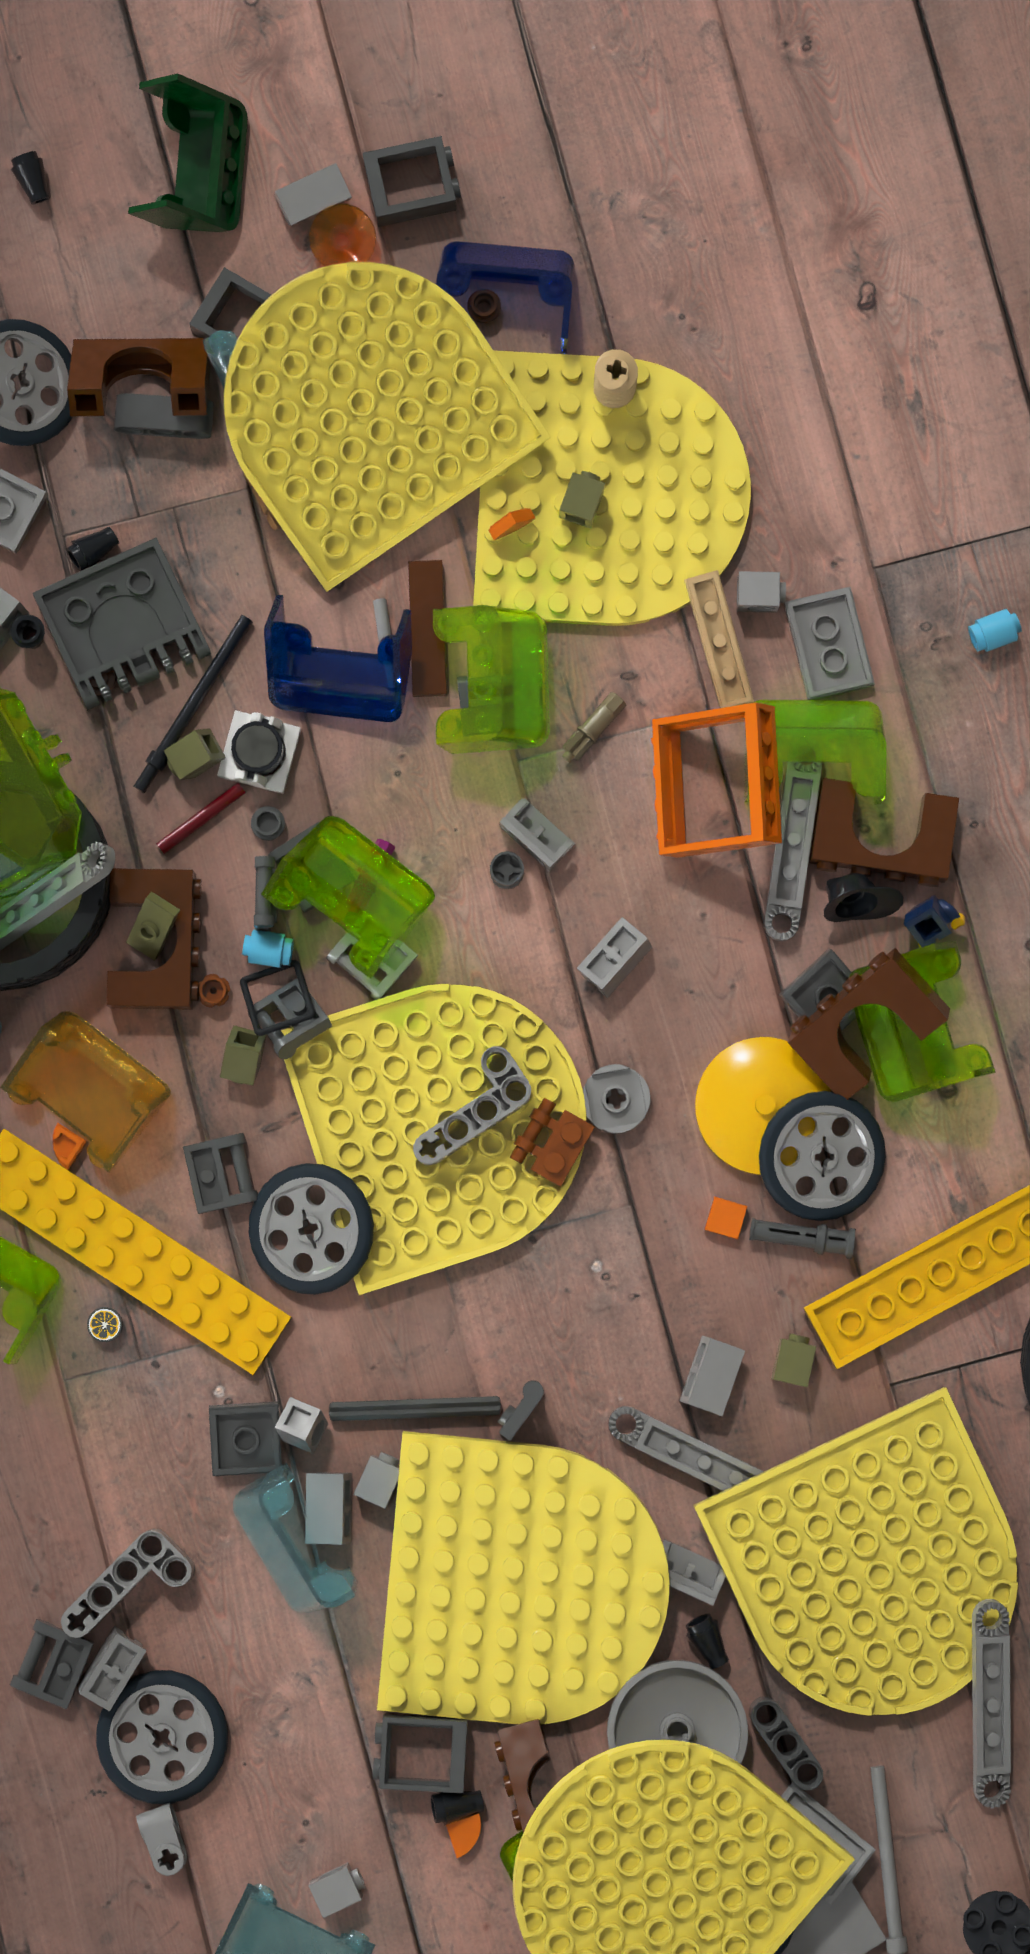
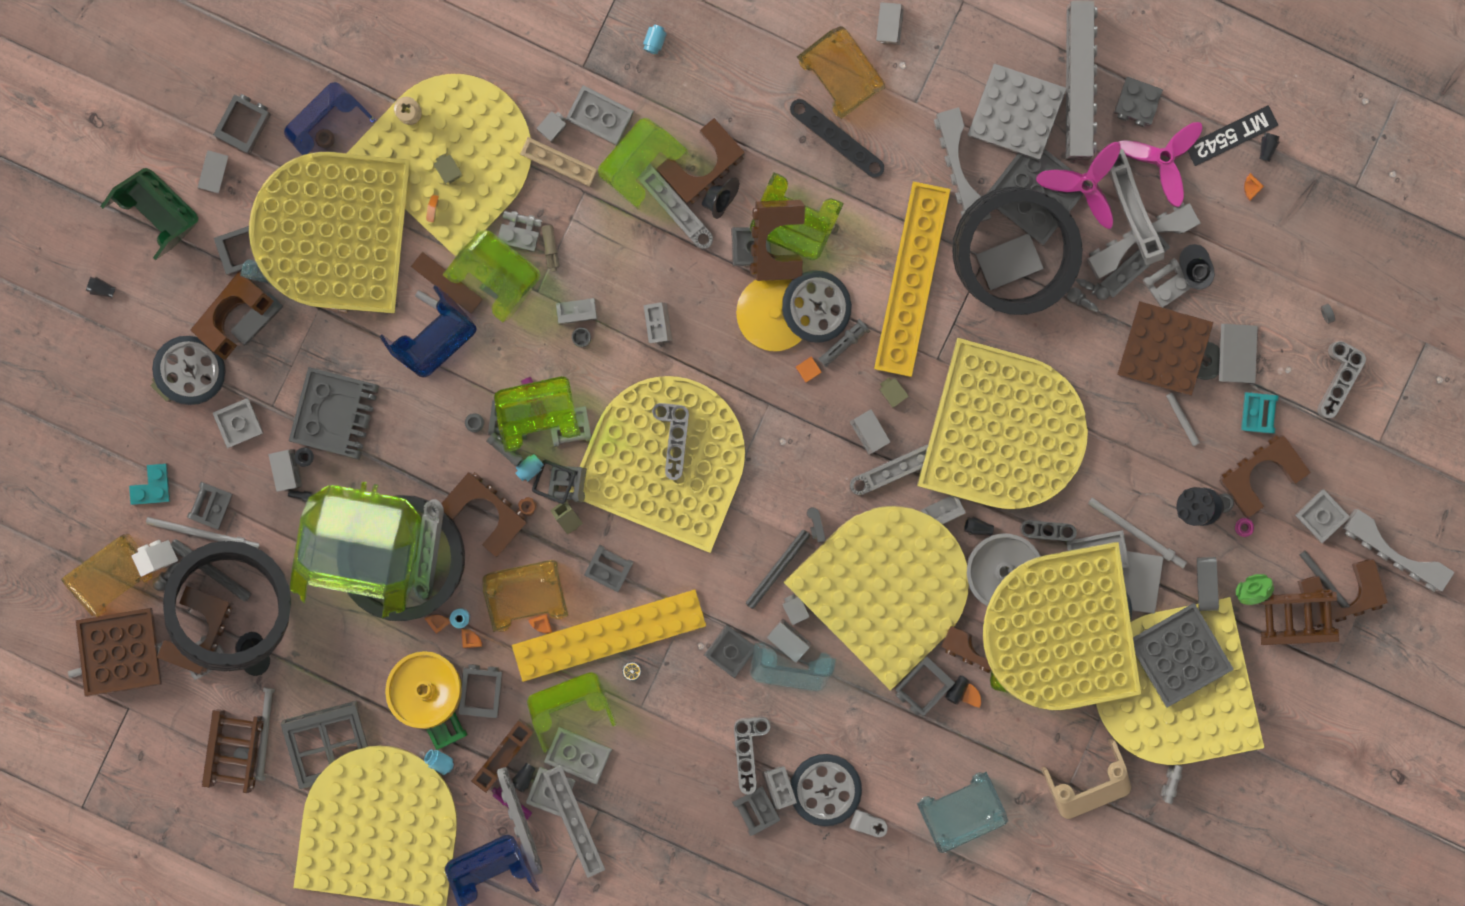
camera: 50 degrees left, 5 degrees up
(91, 548) = (289, 398): black cone -> none
(153, 926) = (478, 509): olive plate -> none
(157, 759) = (406, 446): black bar -> none
(194, 754) = (418, 429): olive brick -> none
(201, 818) = (447, 449): dark red bar -> none
(258, 750) = (439, 400): piece -> none
(301, 1425) = (745, 622): light grey brick -> none
(337, 1889) = (950, 768): light grey brick -> none
(342, 220) = (250, 168): clear orange dish -> none
(355, 1238) = (685, 534): wedge -> none
(562, 1146) = (720, 414): dark orange plate -> none
(571, 673) = (520, 237): none -> light grey plate
(626, 1082) = (715, 363): light grey plate -> none
(762, 779) = (632, 194): orange window -> none
(932, 920) = (756, 174): dark blue piece -> none
(991, 1703) = (1103, 430): light grey plate -> none

